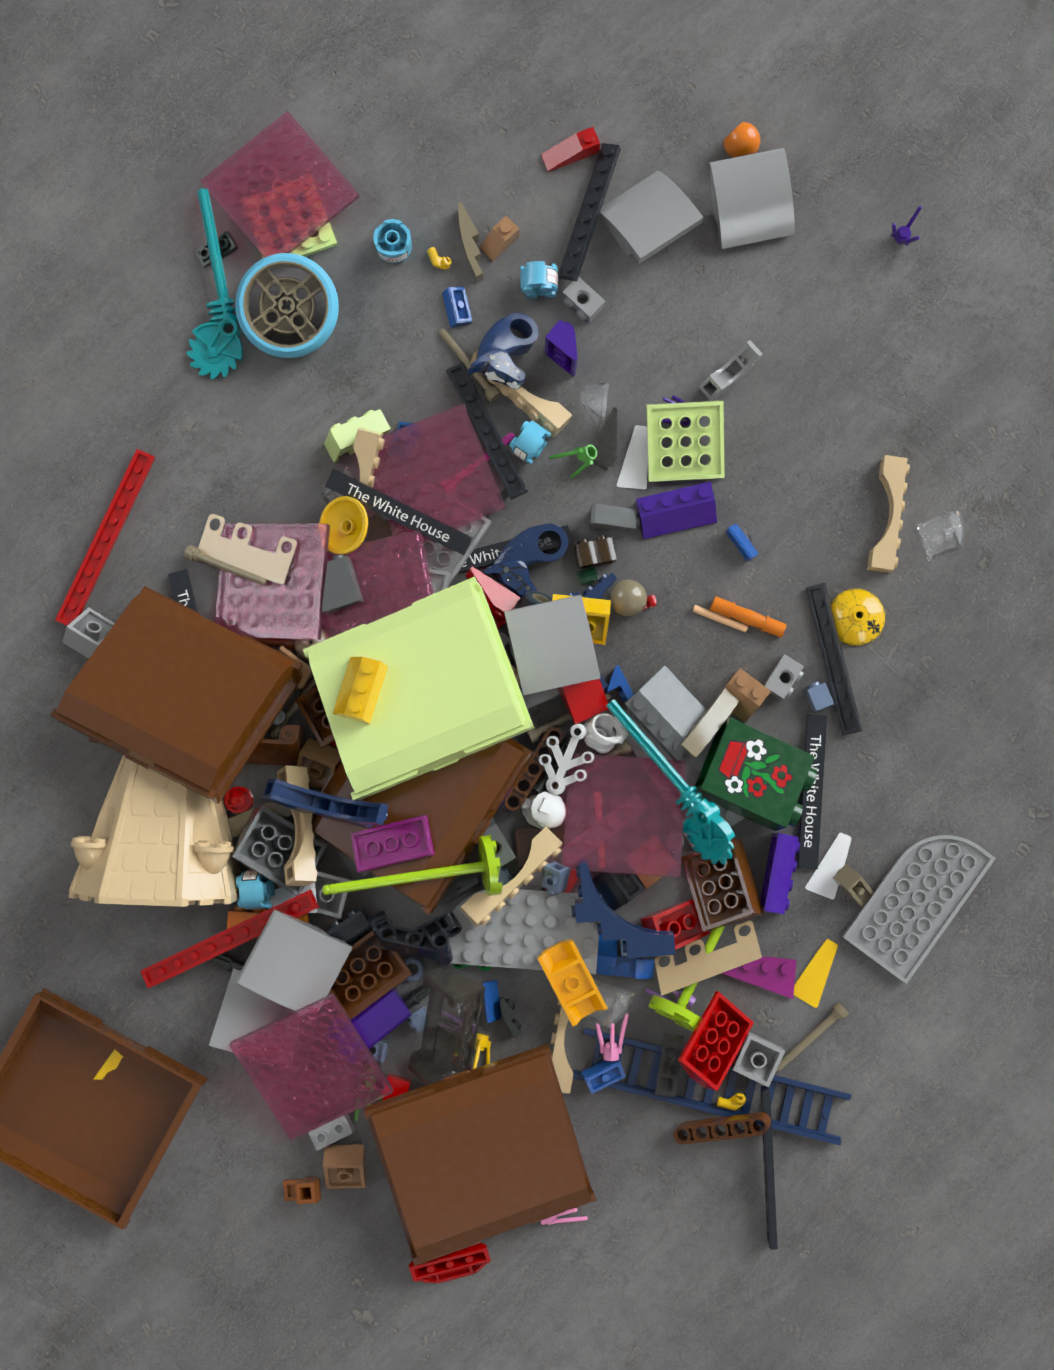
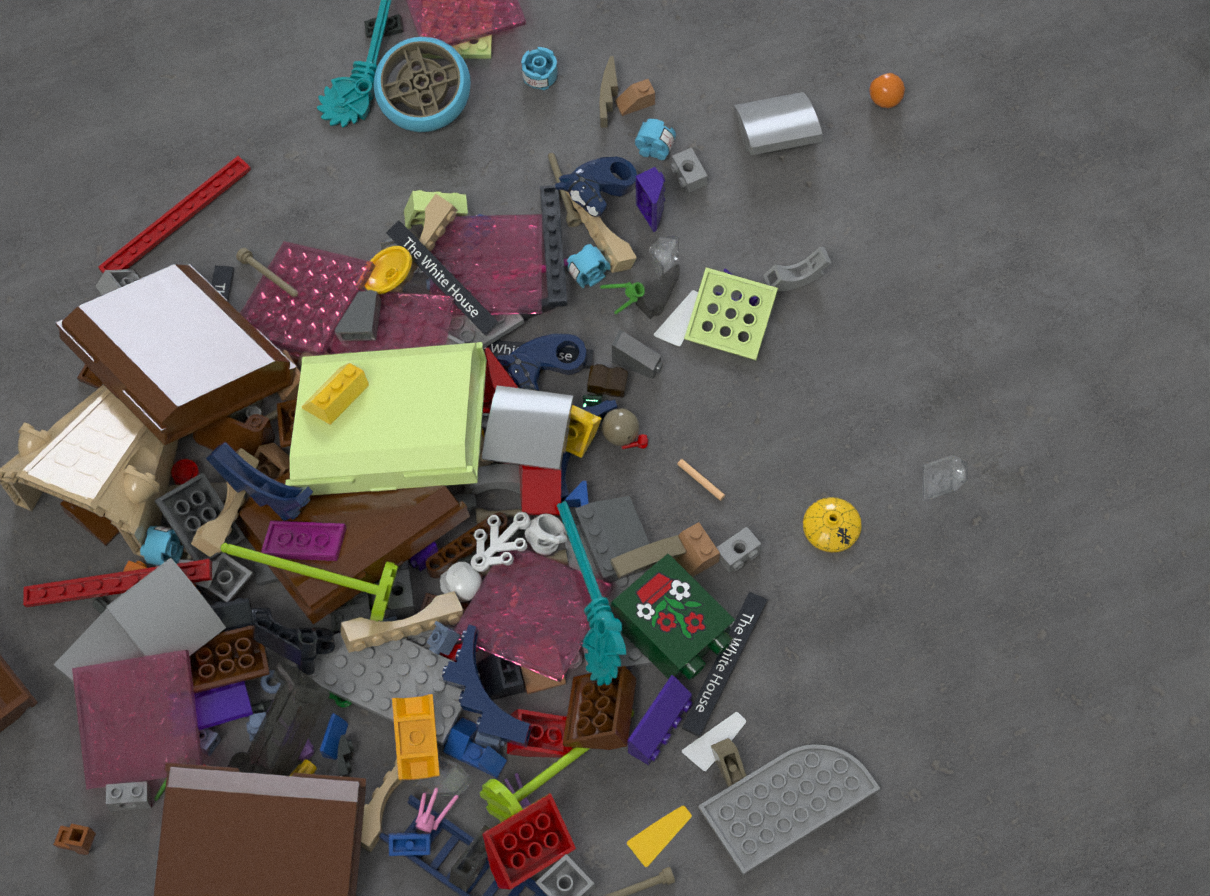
camera: 25 degrees right, 20 degrees down
(246, 557) = (287, 269): tan piece -> none
(344, 1166) = (124, 835): medium nougat slope -> none
(439, 262) = (576, 101): yellow arm -> none
(457, 306) = (574, 140): blue slope -> none
(572, 149) = (734, 49): slope -> none
(589, 212) = (724, 102): black plate -> none
(676, 510) = (699, 371): dark purple slope -> none
(708, 965) = (552, 769): tan piece -> none
(741, 542) = (749, 420): blue slope -> none
(748, 617) = (727, 486): orange piece -> none
(752, 198) = (876, 136): light grey slope -> none
(768, 973) = (607, 811): magenta wing -> none
(818, 696) = (765, 579): sand blue brick -> none
(834, 659) = (794, 553): black tile -> none
(892, 475) = (879, 474): tan arch -> none
(903, 233) = (1008, 214): dark purple plant -> none

